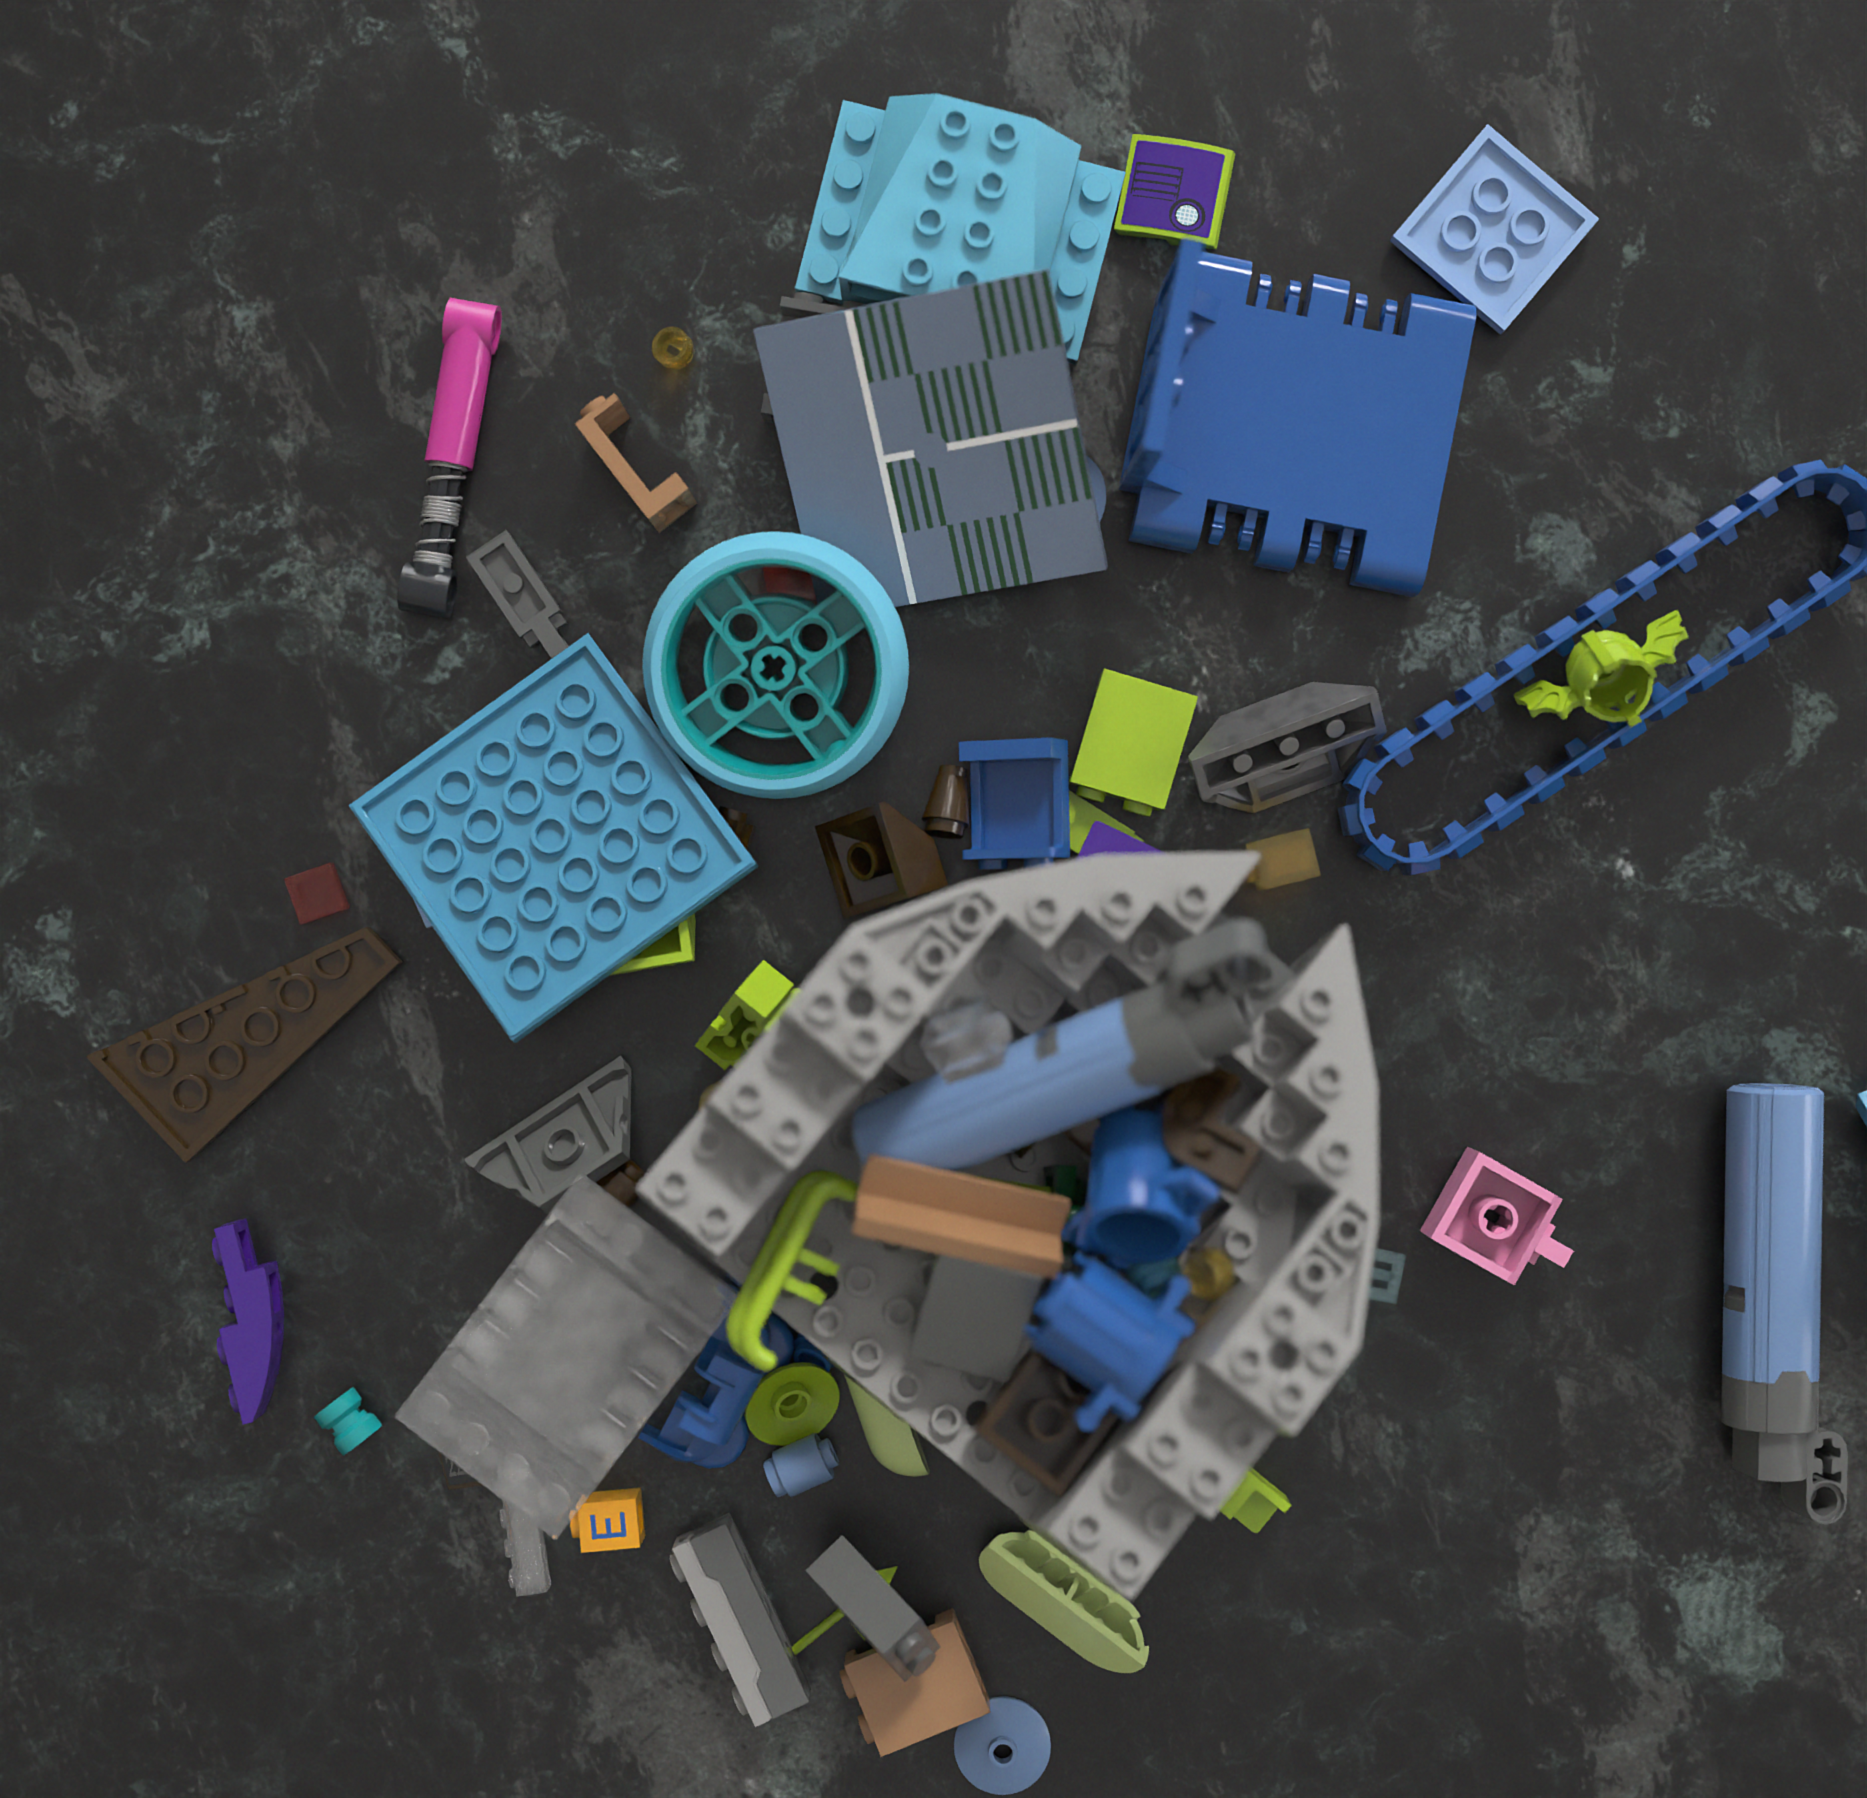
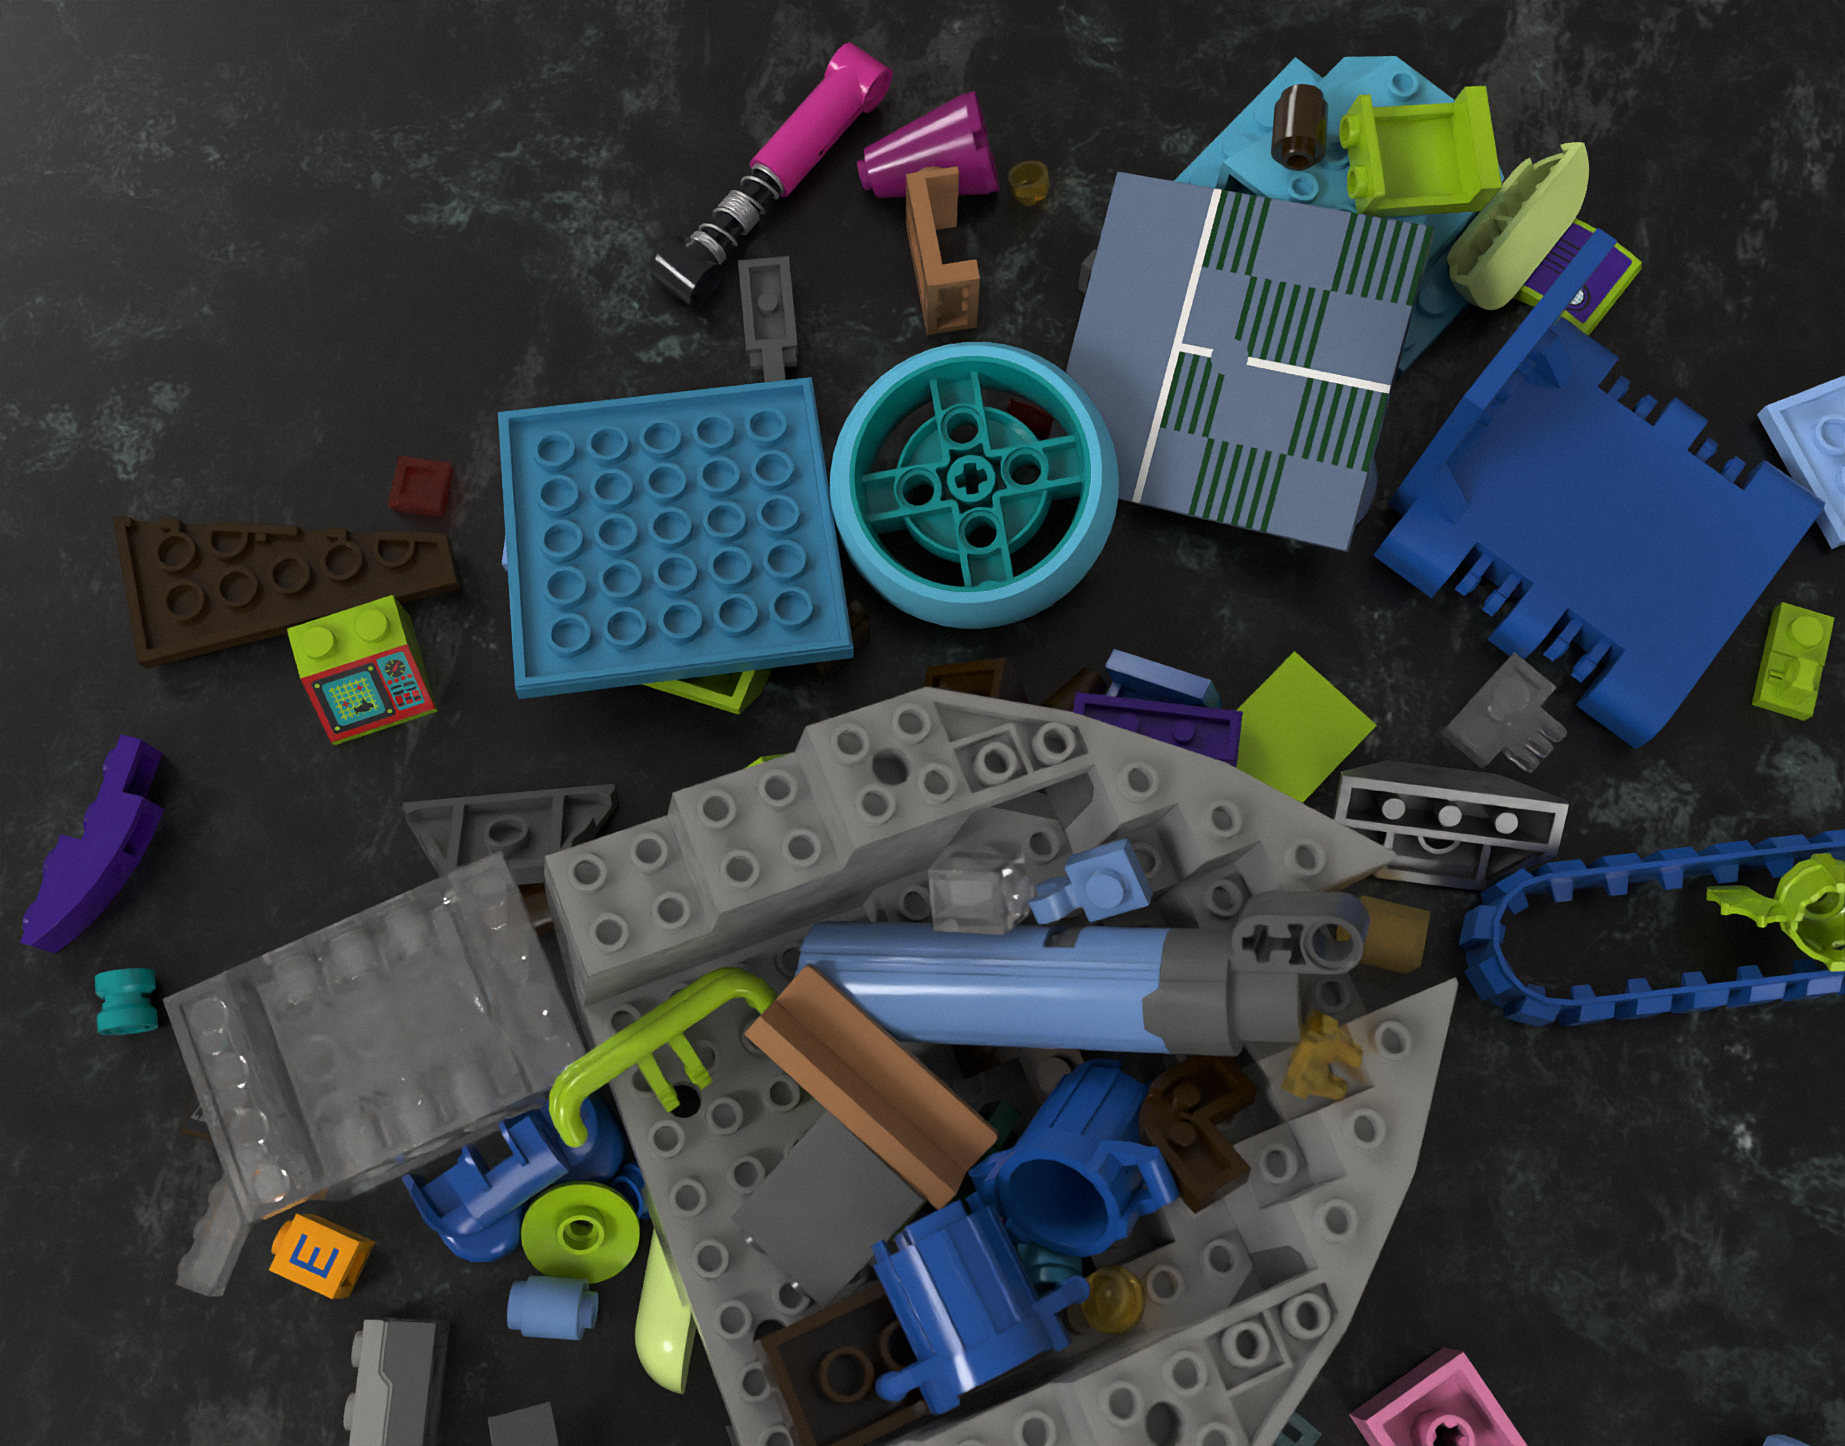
camera: 30 degrees right, 15 degrees down
(368, 1072) = (362, 669): none -> slope
(581, 365) = (941, 138): none -> magenta cone
(890, 221) = (1300, 127): none -> dark brown brick
(1002, 194) = (1421, 156): none -> lime panel
(1026, 797) = (1190, 727): none -> dark purple tile
(1051, 990) = (1100, 880): none -> medium blue plate
(1113, 180) = (1519, 227): none -> yellowish green brick
(1270, 1033) = (1307, 1066): none -> clear yellow tile
(1297, 626) = (1507, 718): none -> clear hinge
(1507, 452) = (1793, 661): none -> lime hinge

